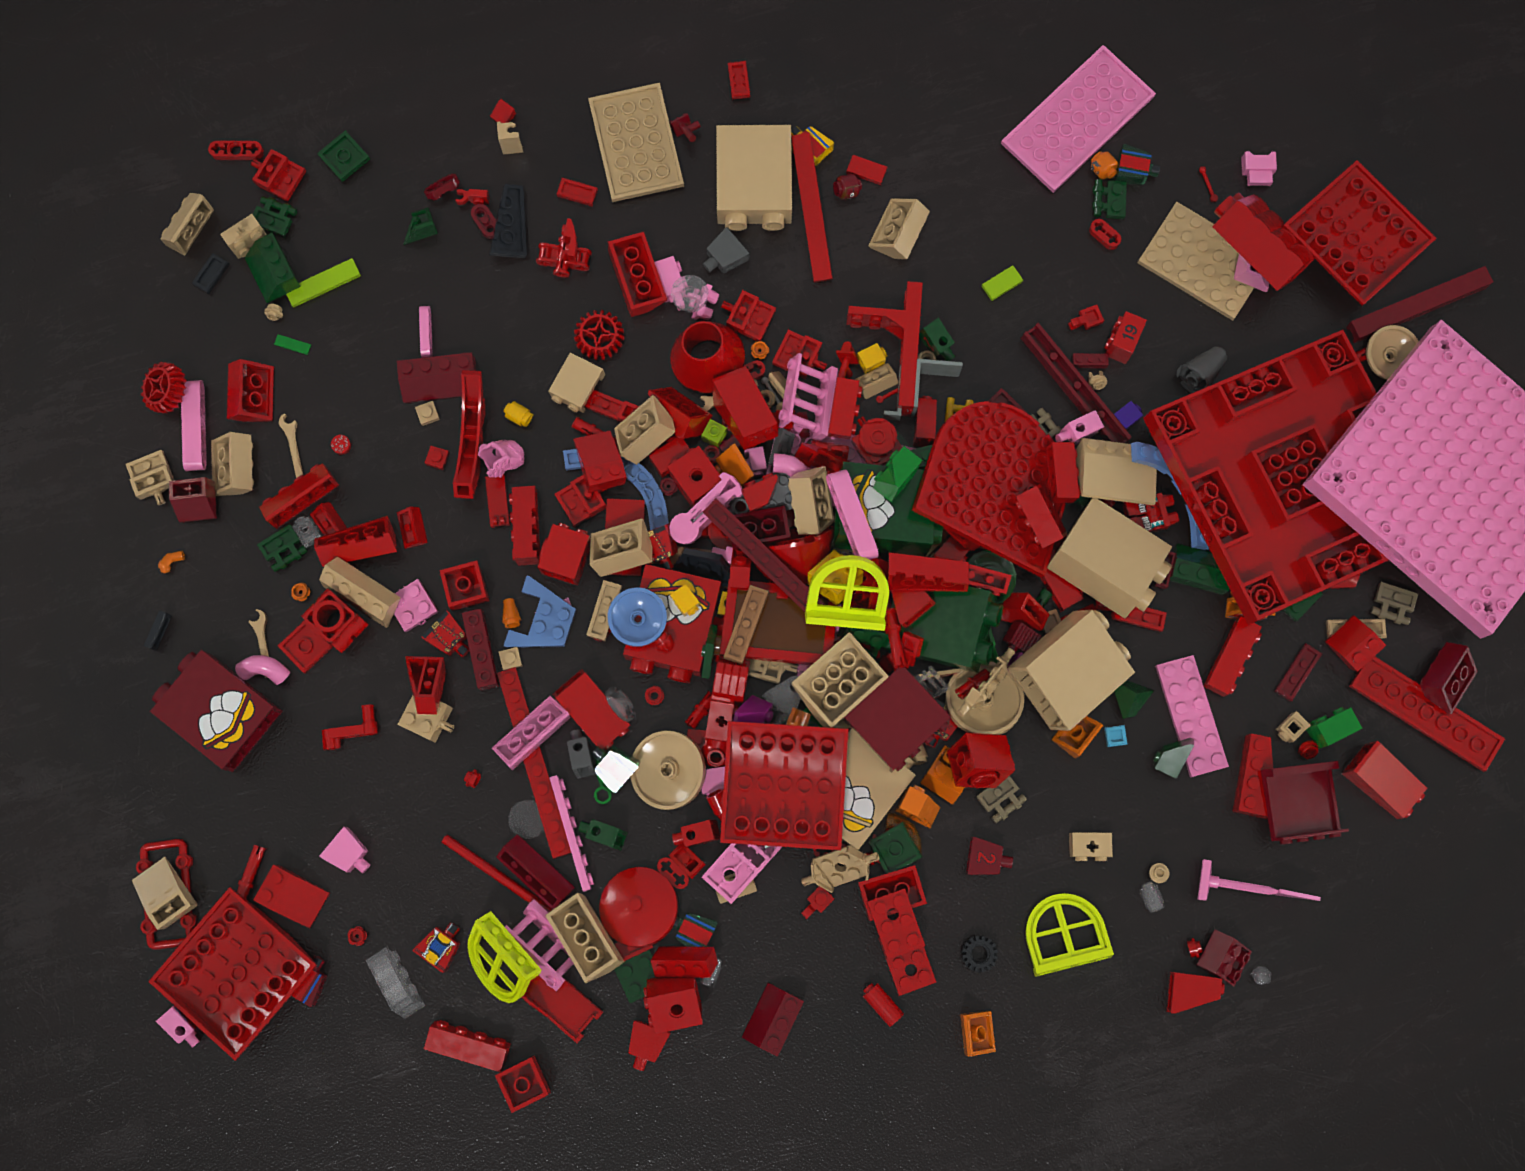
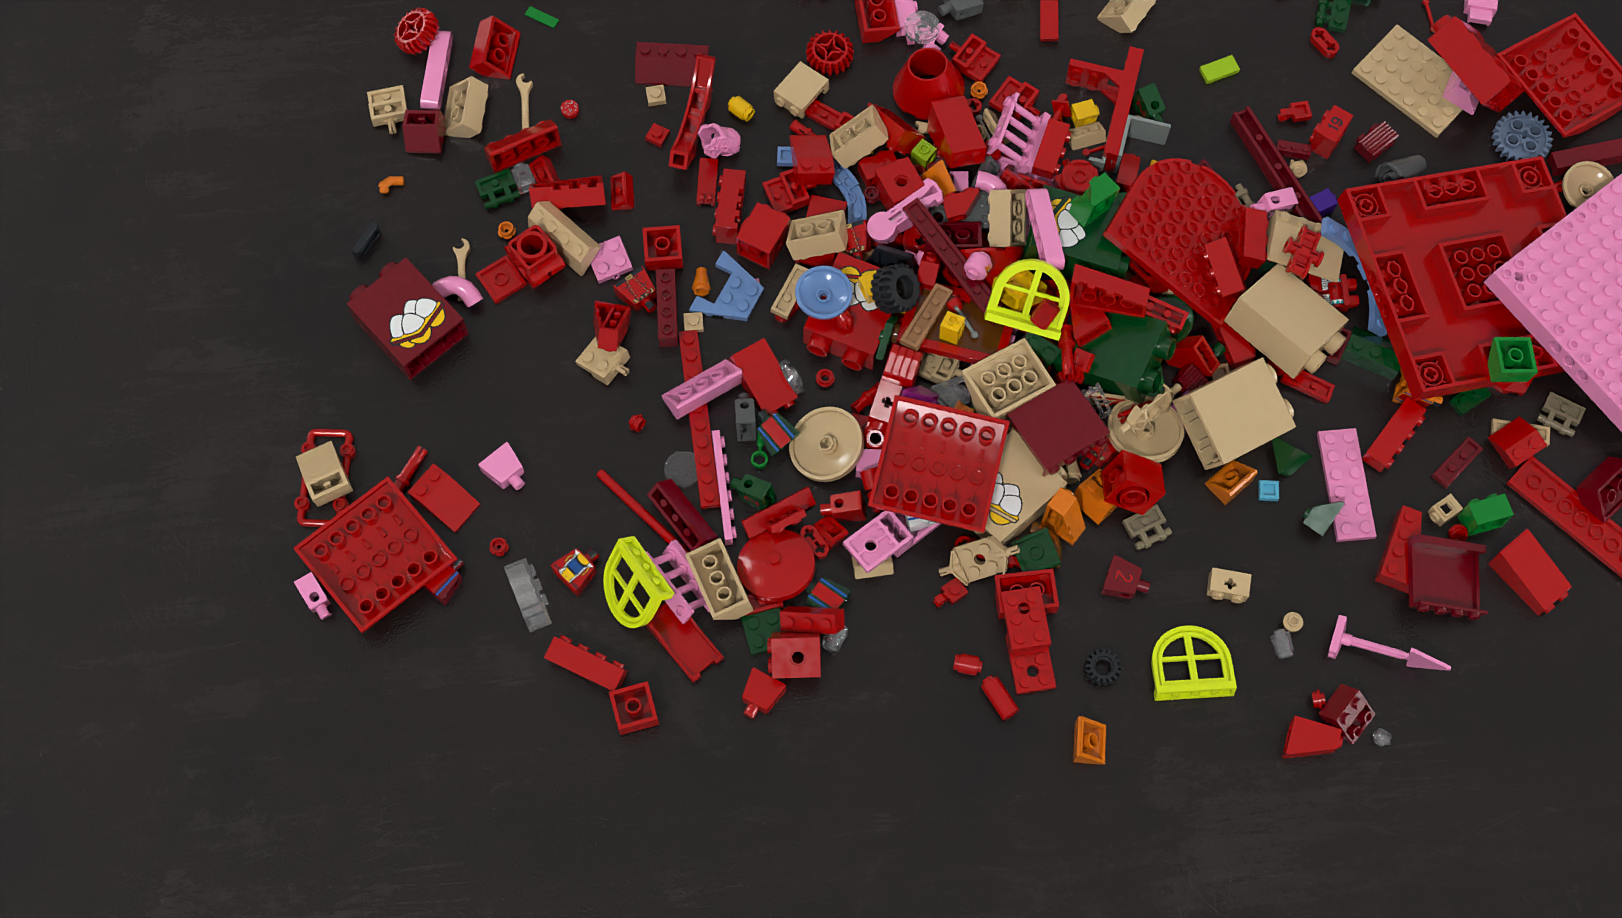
camera: 10 degrees right, 10 degrees down
(332, 736) = (513, 361): red beam -> none
(425, 331) = (668, 22): bright pink beam -> none
(634, 852) = (781, 514): none -> red bracket
(709, 601) = (895, 288): none -> black tyre
(772, 1019) = (889, 693): dark red slope -> none
(774, 607) = (955, 306): none -> hinge
(774, 633) = (952, 327): none -> yellow brick
(790, 564) = (978, 266): none -> bright pink head
(845, 975) = (967, 664): none -> red brick
(866, 608) = (1044, 314): none -> red piece
(1116, 483) = (1303, 252): none -> red axle
(1173, 337) = (1376, 141): none -> dark red brick
(1317, 323) = (1521, 137): none -> sand blue gear
(1341, 569) = (1511, 359): none -> green slope

